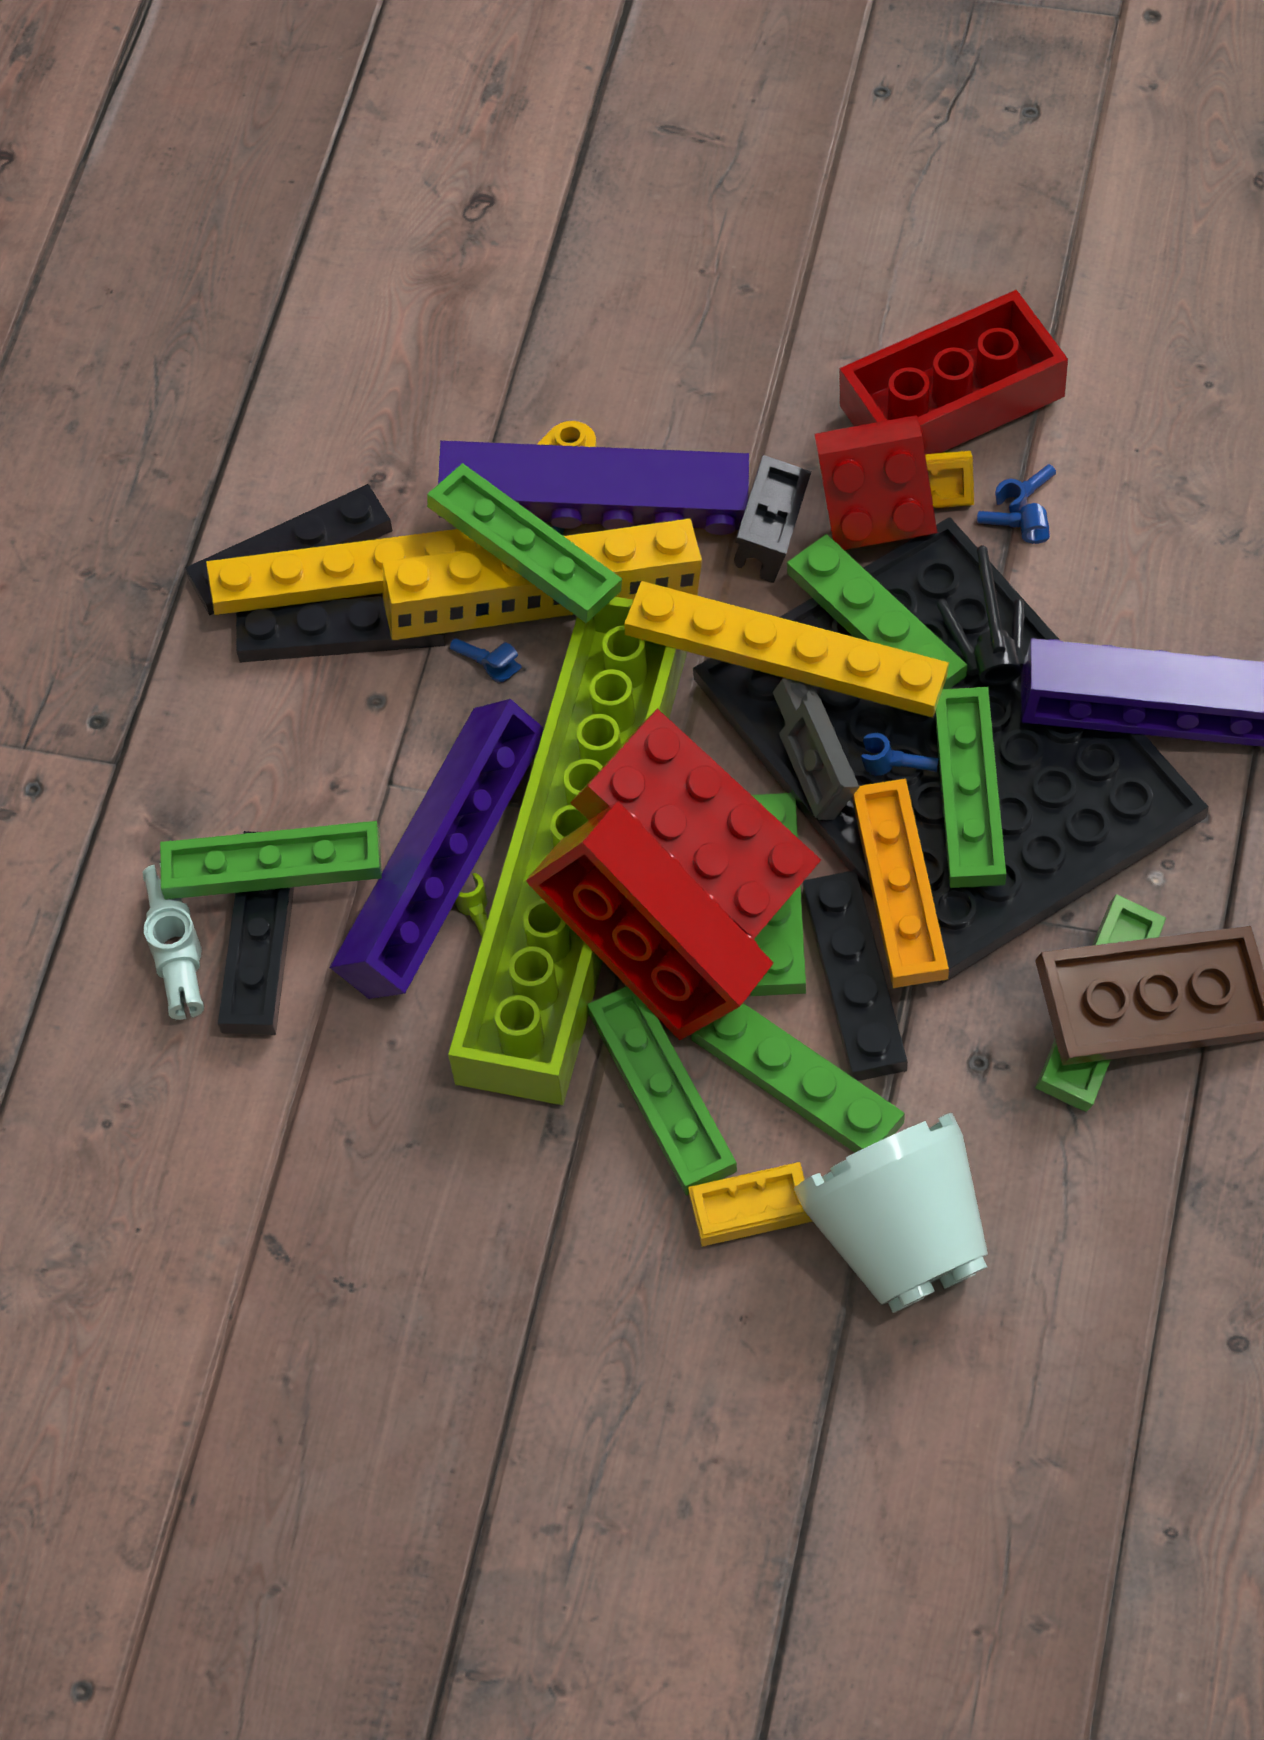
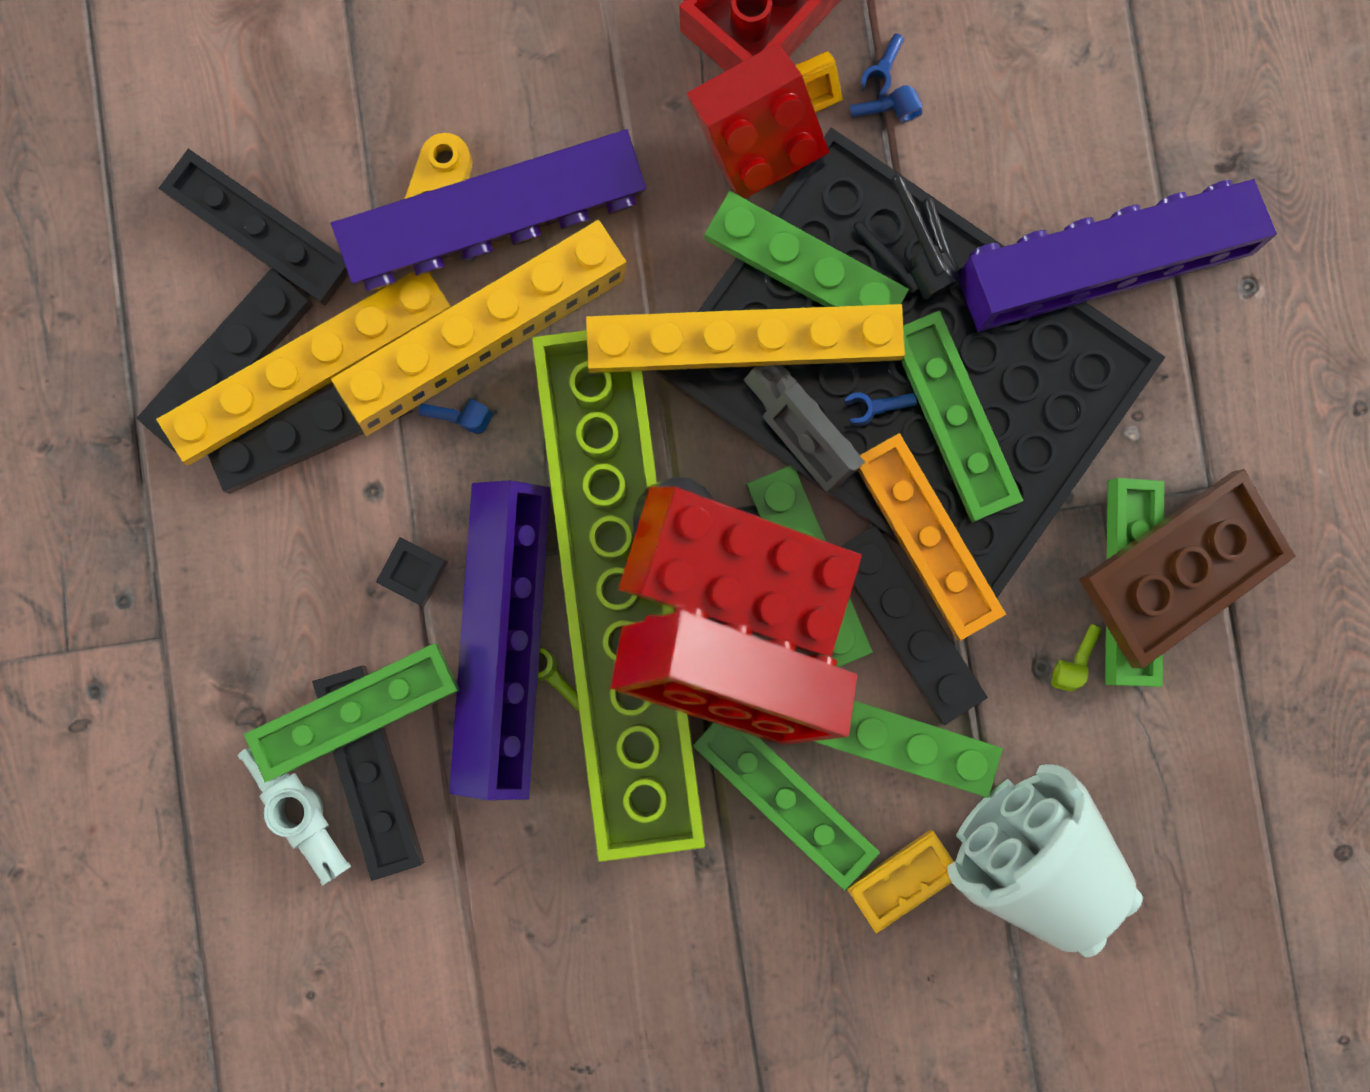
camera: 20 degrees left, 25 degrees up
(368, 446) = (255, 226): none -> black plate
(382, 772) = (411, 572): none -> black plate
(524, 543) = (459, 317): bright green plate -> none
(771, 515) = (670, 182): hinge -> none
(1005, 1072) = (1074, 674): none -> lime hand

